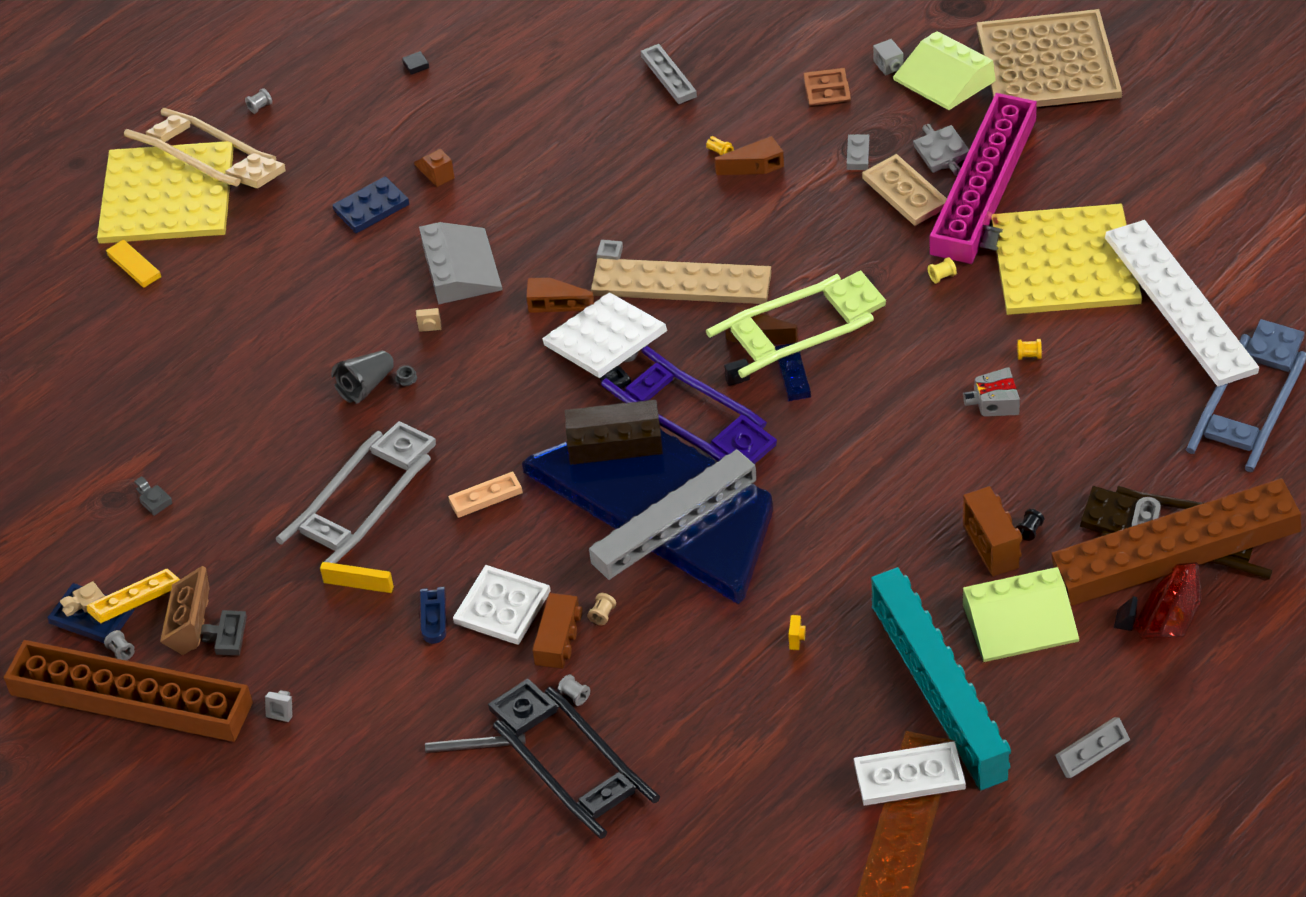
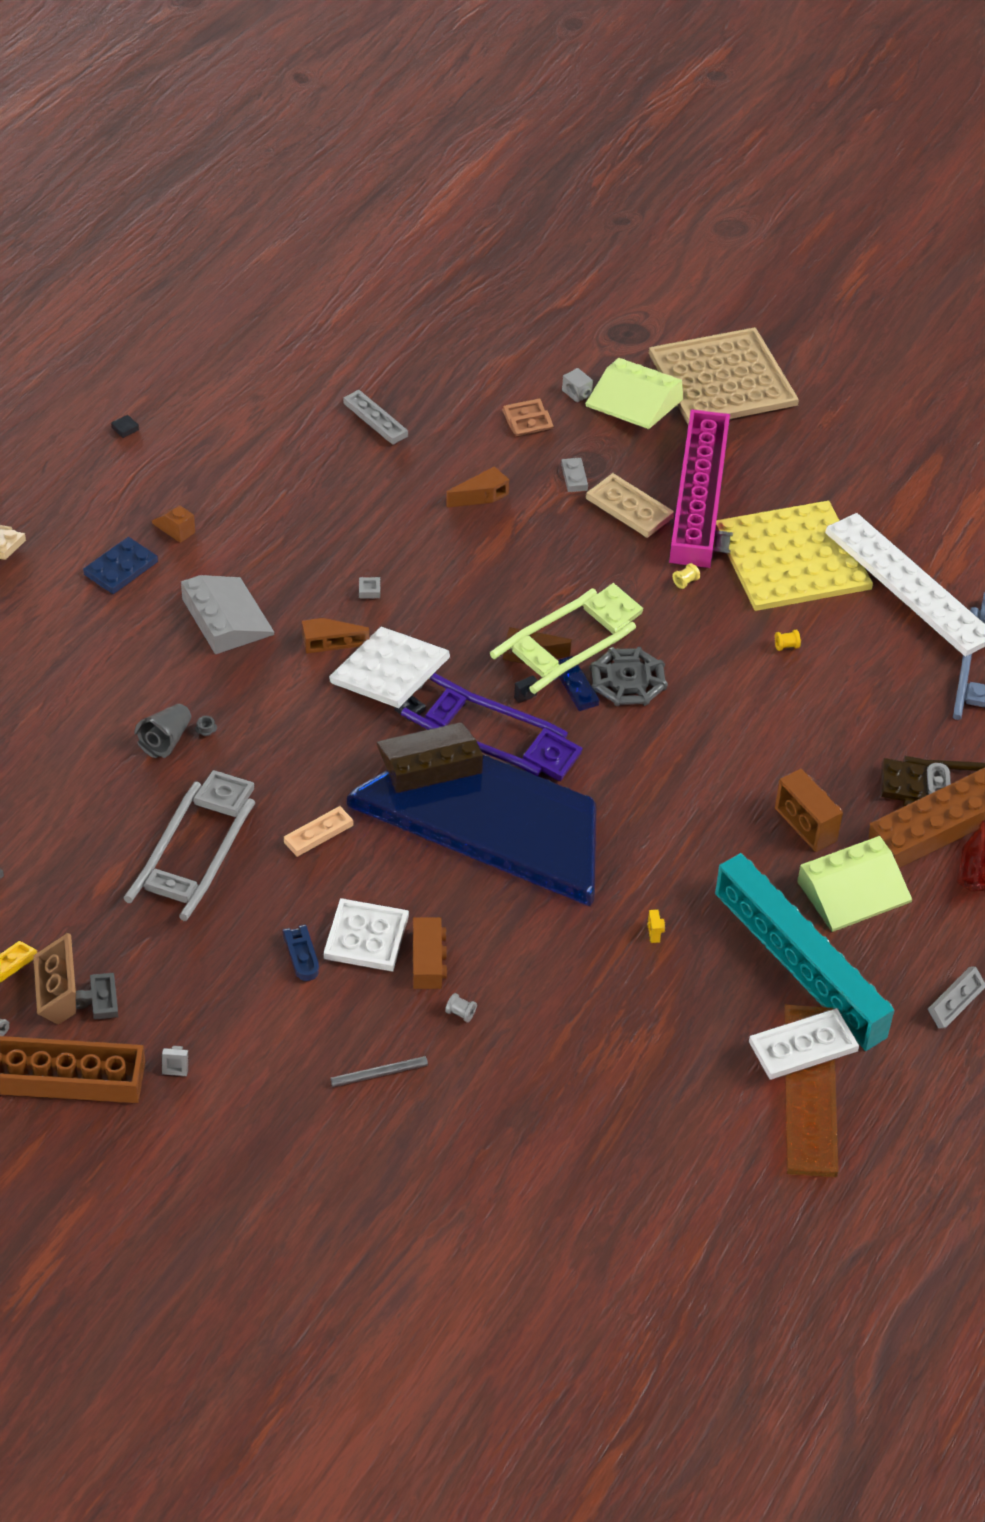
camera: 20 degrees left, 0 degrees up
(356, 577) = (215, 926): yellow tile -> none
(428, 319) = (213, 670): tan plate -> none
(527, 707) = (420, 1031): black plate -> none
(601, 609) = (464, 927): tan bush -> none
(672, 514) = (511, 829): light grey brick -> none
(682, 281) = (445, 609): tan plate -> none
(719, 146) = (444, 480): yellow pin -> none
(849, 355) = (628, 662): none -> dark grey plate
(941, 149) = (651, 465): light grey plate -> none
(994, 394) = (770, 684): light grey torso -> none
(1030, 524) = (839, 795): black bush -> none
(1126, 615) = (949, 872): black slope -> none

